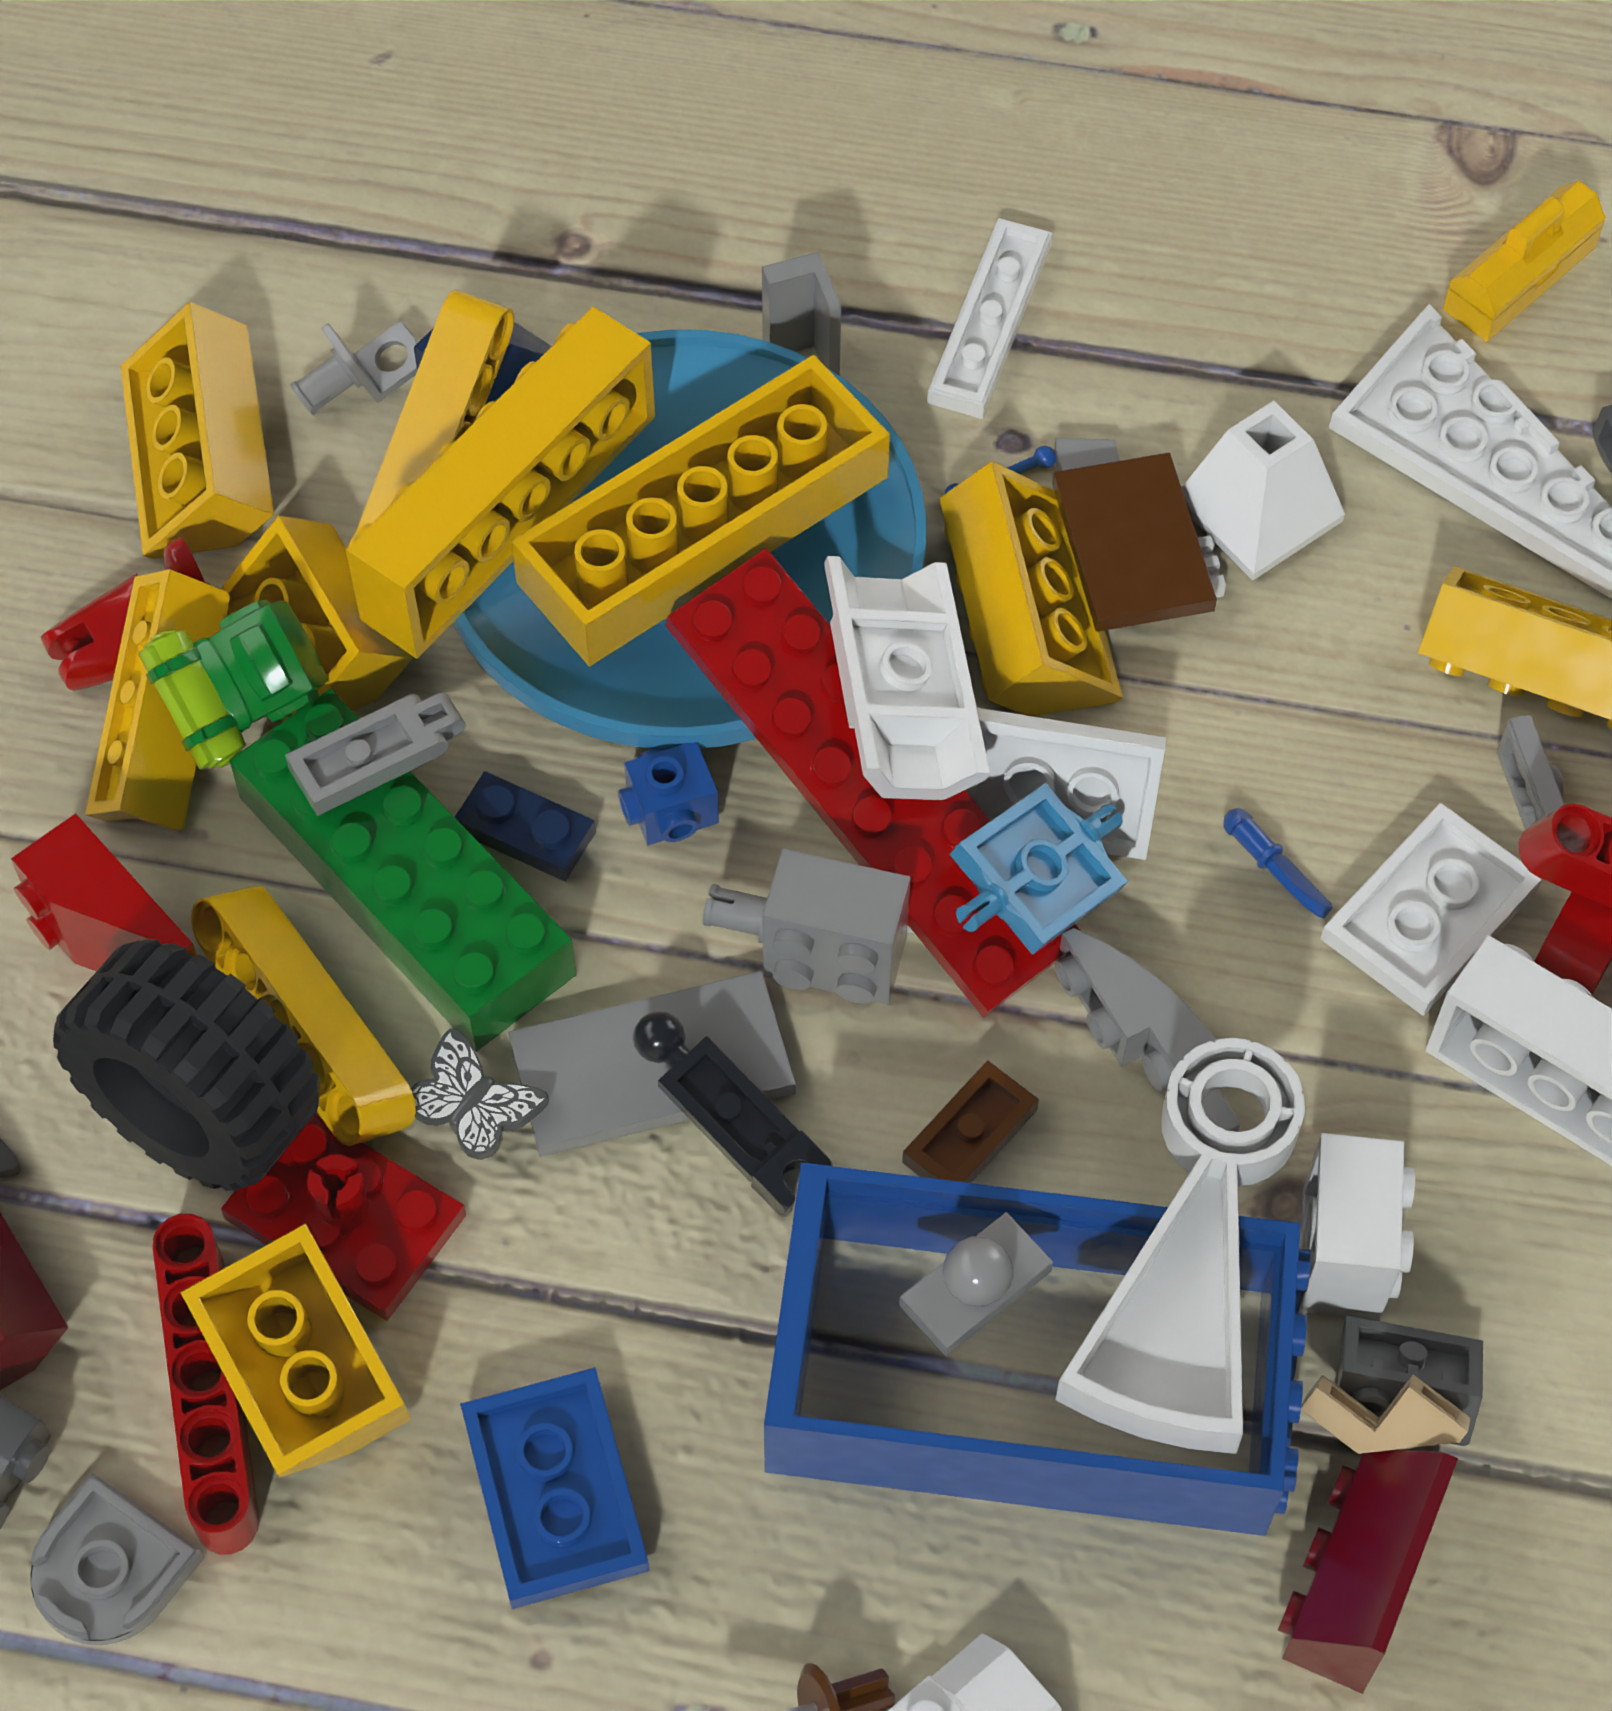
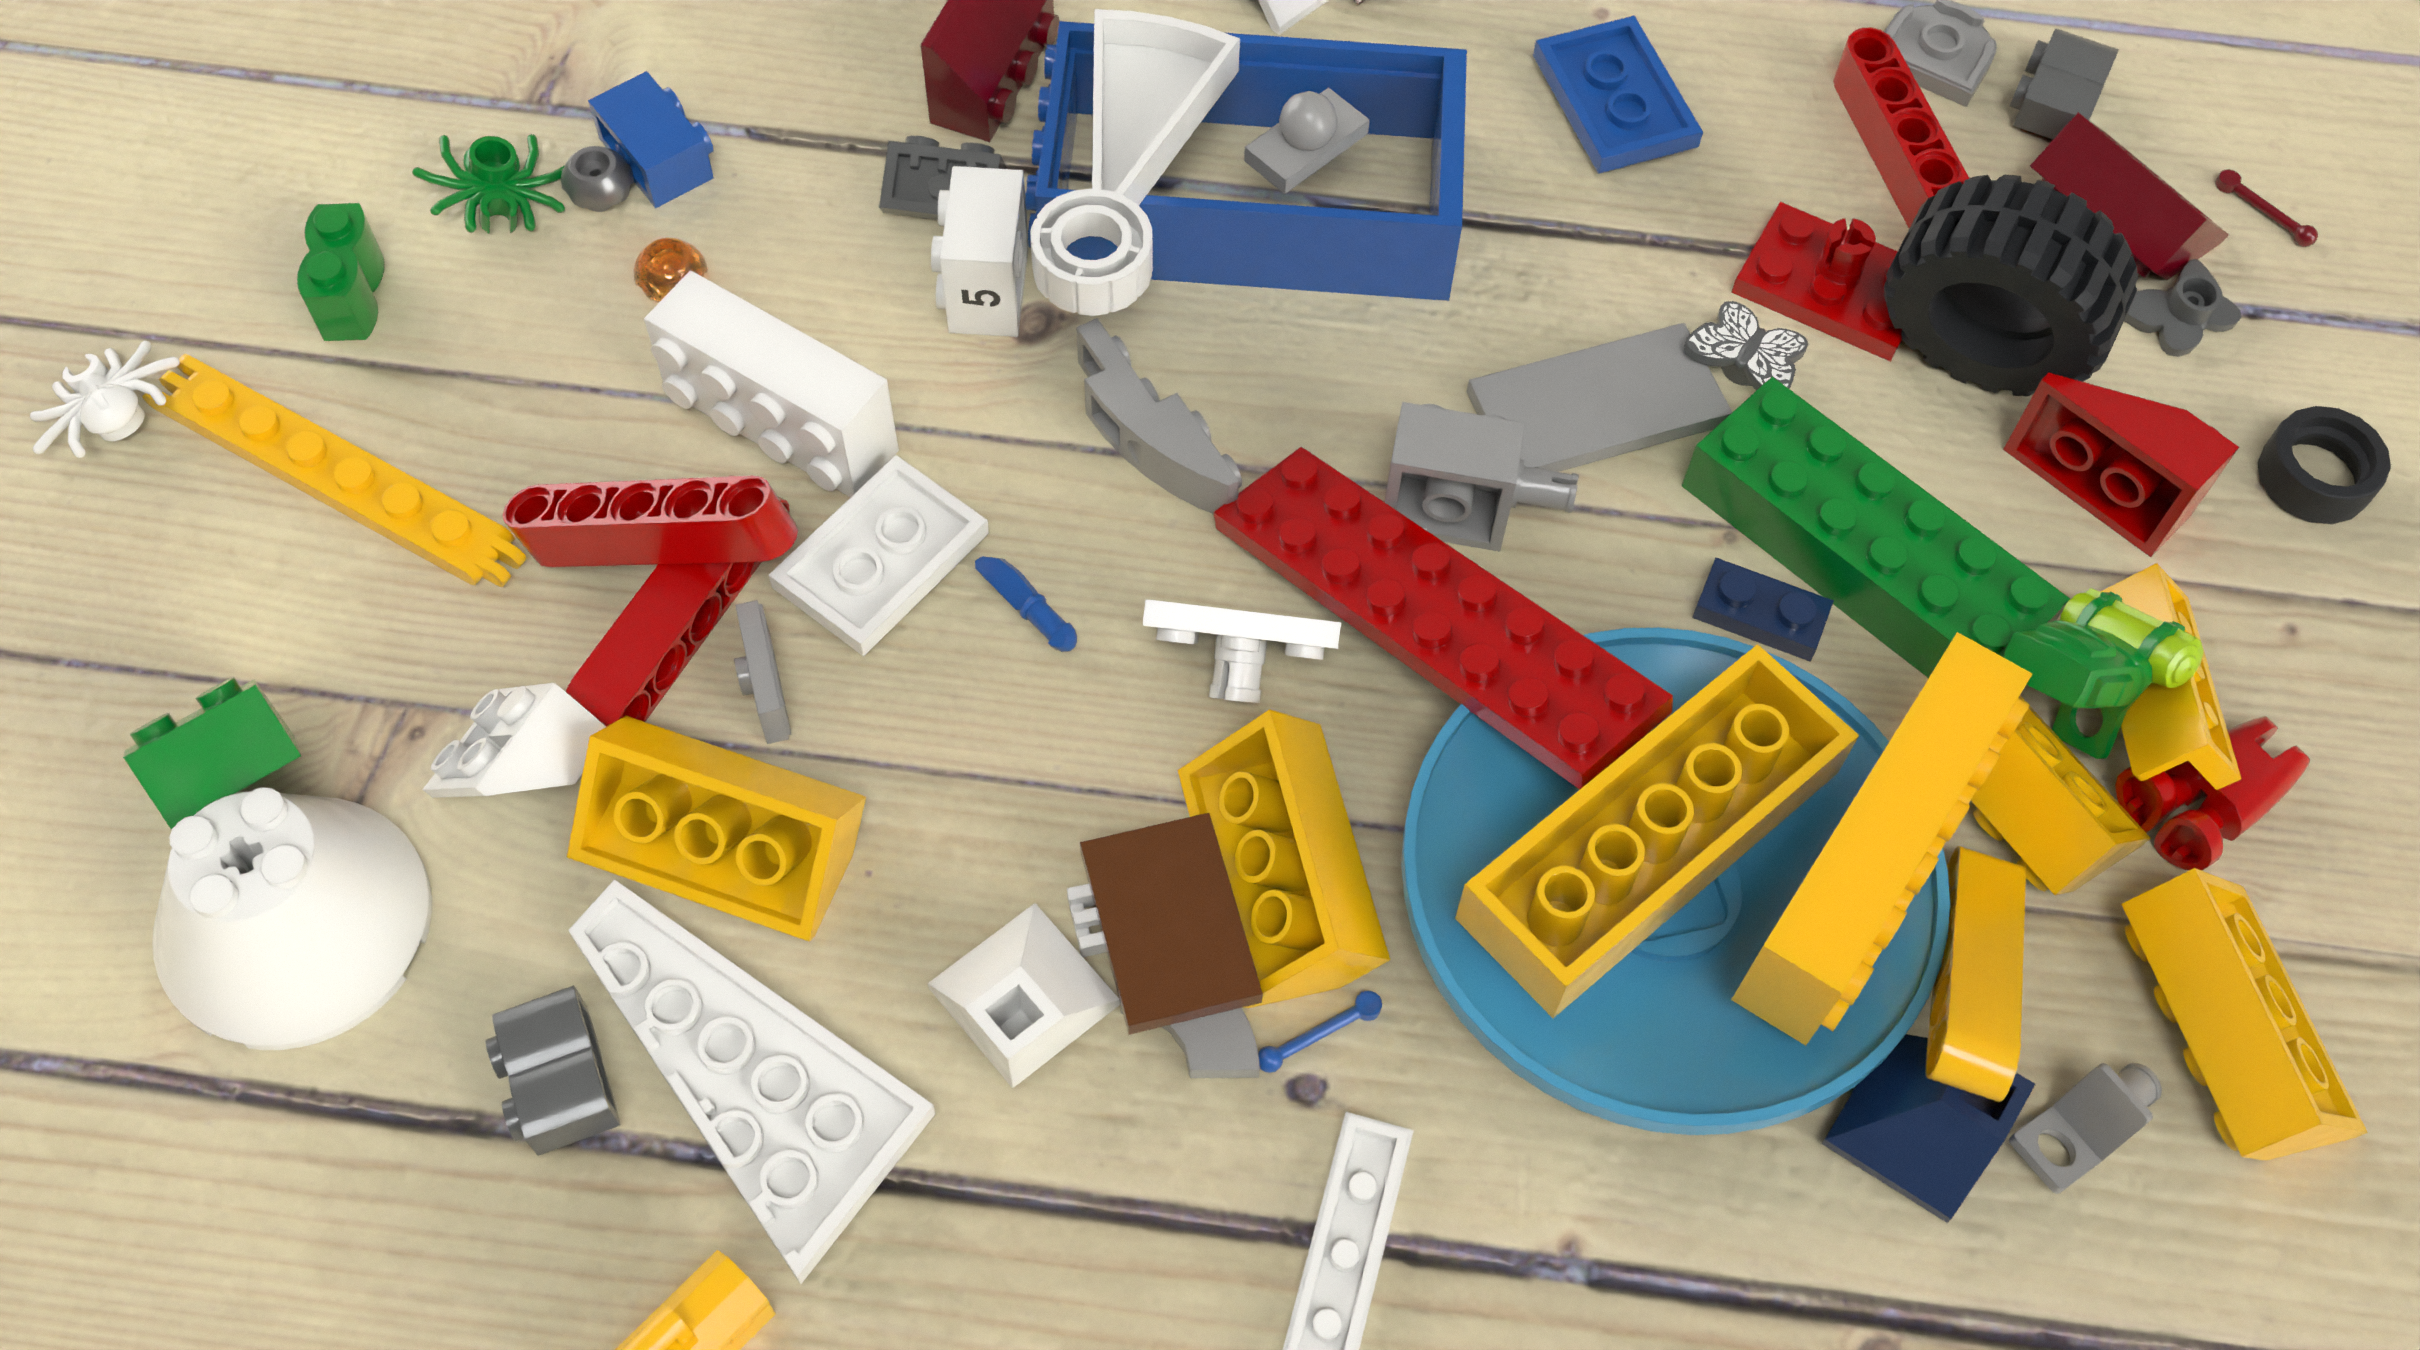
camera: 175 degrees right, 0 degrees up
(255, 942) = (1925, 406): yellow beam -> none
(296, 1354) = (1839, 137): yellow slope -> none
(374, 749) = (1933, 574): light grey hinge -> none
(669, 793) = (1629, 601): blue brick -> none
(728, 1109) = (1521, 335): black plate -> none
(802, 308) = (1573, 1200): light grey panel -> none
(906, 682) = (1420, 663): white piece -> none
(971, 1127) = (1310, 348): reddish brown plate -> none
(1039, 868) = (1264, 519): dark azure plate -> none
(1411, 1420) = (969, 108): tan slope -> none

